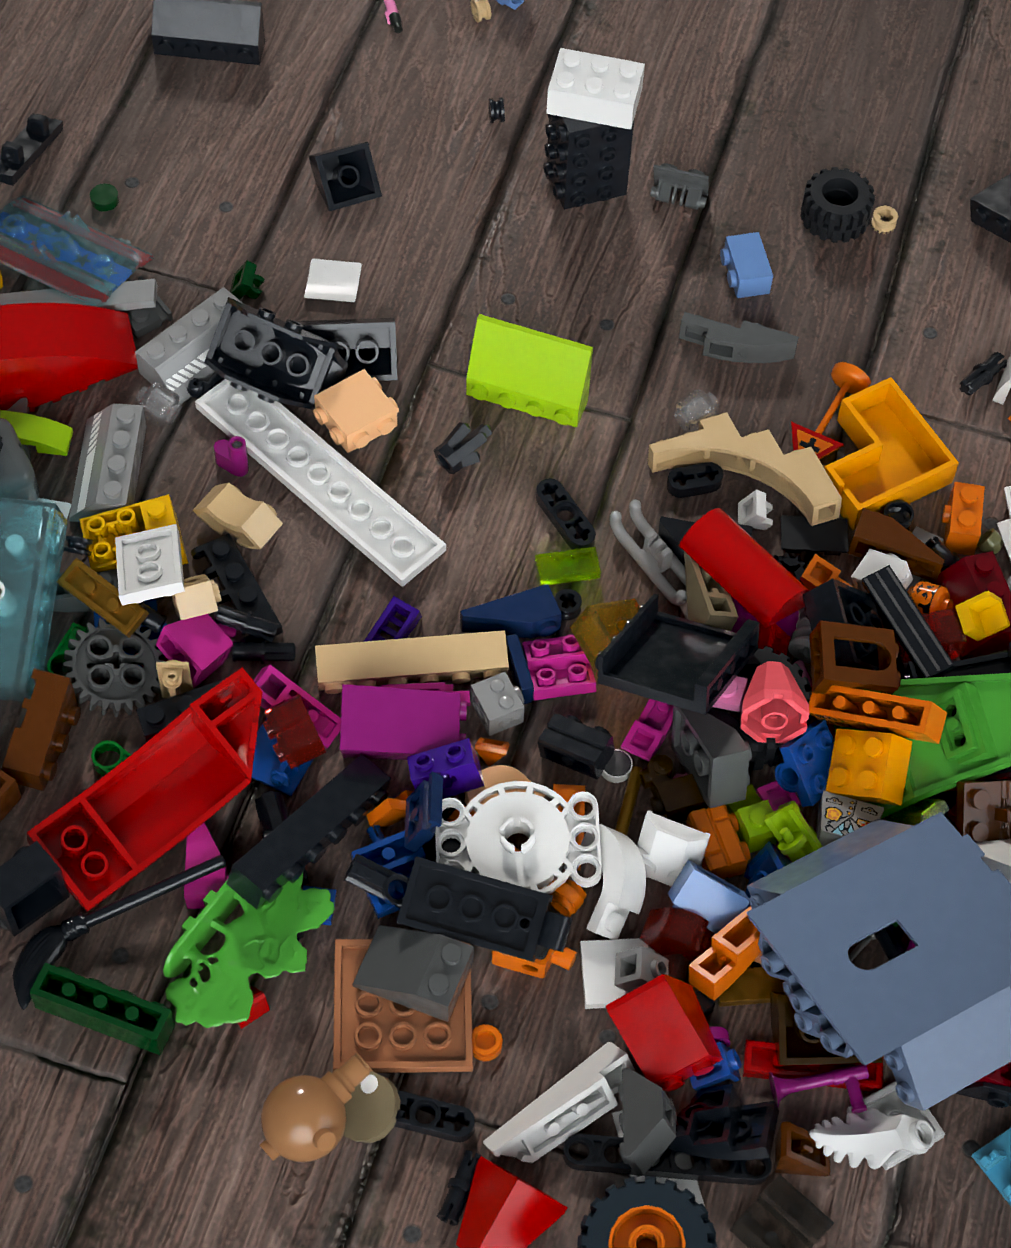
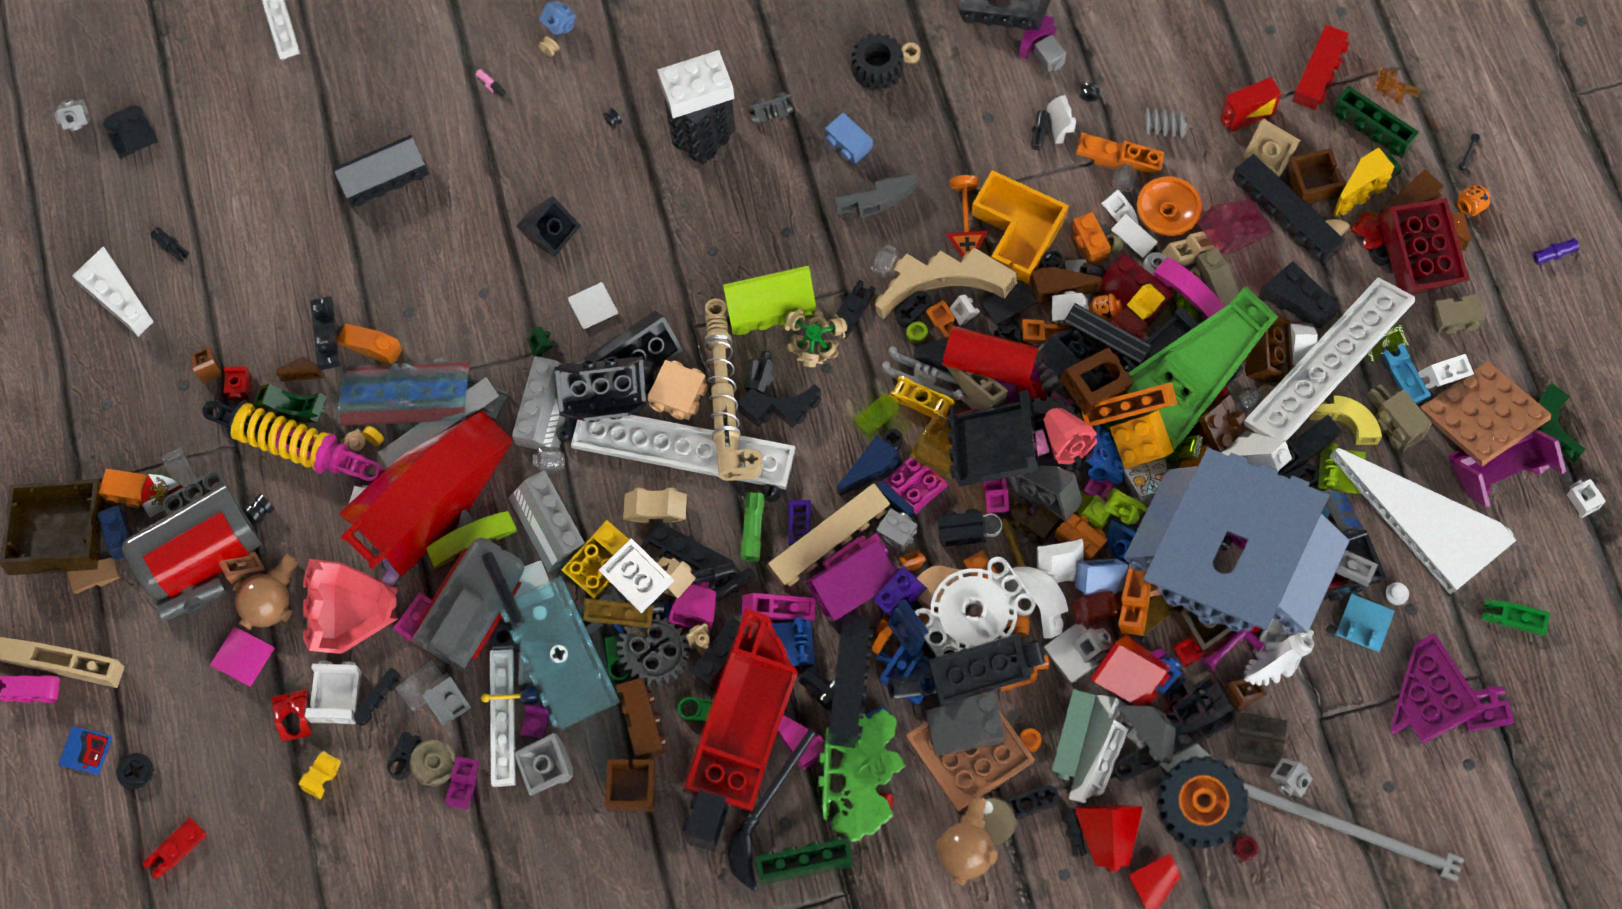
camera: 25 degrees left, 10 degrees up
(66, 187) = (370, 343): none -> orange slope
(78, 545) = (577, 588): black bush -> none
(104, 197) = (401, 333): dark green tile -> none
(232, 455) = (621, 468): magenta piece -> none
(294, 732) = (797, 626): clear red brick -> none
(316, 620) = (752, 527): none -> bright green axle
(374, 479) = (724, 403): none -> tan piece
(385, 583) = (775, 493): none -> black hinge
(471, 503) = (791, 410): none -> black arch
(543, 1063) = (1073, 734): none -> sand green slope
(557, 433) = (814, 328): none -> tan plant
(565, 503) = (848, 372): black beam -> none
(621, 441) = (854, 306): none -> black hinge
(624, 563) = (907, 392): none -> yellow piece
(681, 506) = (917, 332): none -> lime tile
(723, 498) = (941, 318): none -> orange slope

